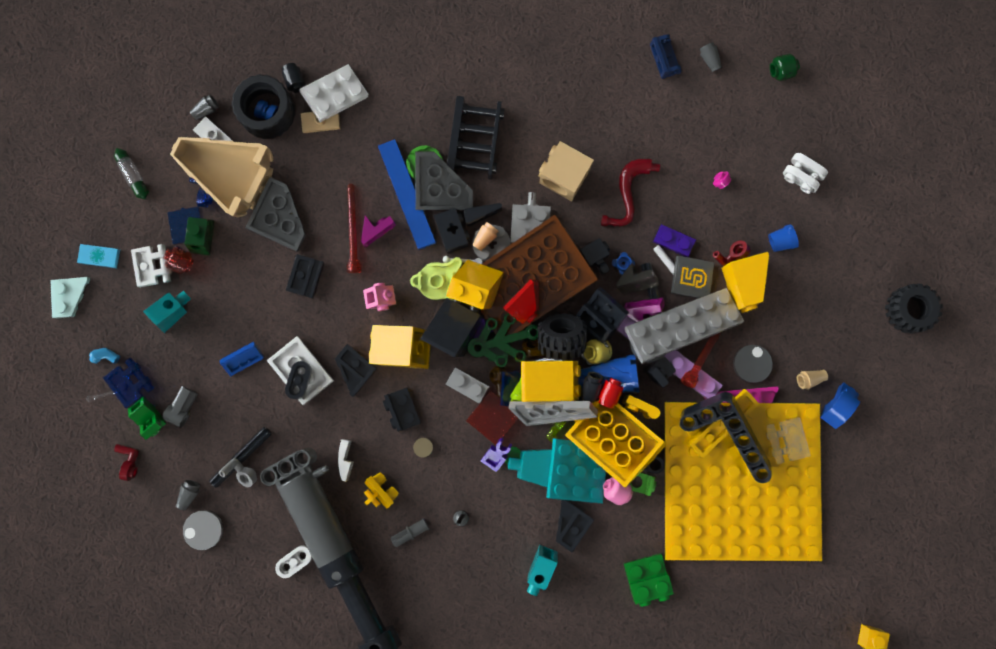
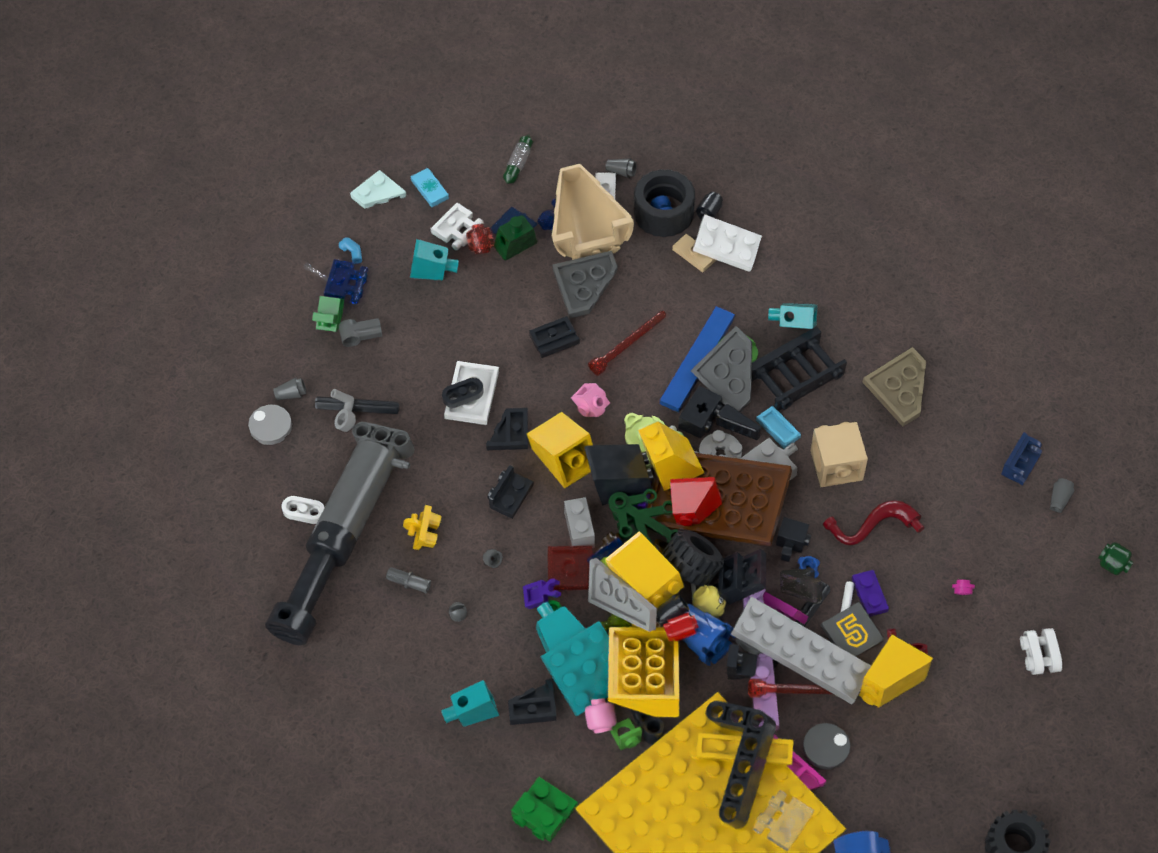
camera: 50 degrees right, 25 degrees down
(128, 469) = (273, 332): dark red plate -> none
(241, 359) = (441, 343): blue plate -> none
(345, 466) = (421, 484): white slope -> none
(373, 233) = (640, 357): magenta slope -> none
(423, 447) = (493, 534): dark tan tile -> none
(436, 101) = (804, 315): none -> torso
(441, 463) = (496, 555): none -> dark grey hinge
(485, 236) = (720, 437): light nougat cone -> none
(505, 188) = (778, 427): none -> medium azure tile
(545, 81) = (899, 385): none -> dark tan plate
(635, 405) = (693, 671): yellow plate -> none
(784, 239) = (964, 679): blue piece -> none
(809, 379) = (863, 806): tan cone -> none

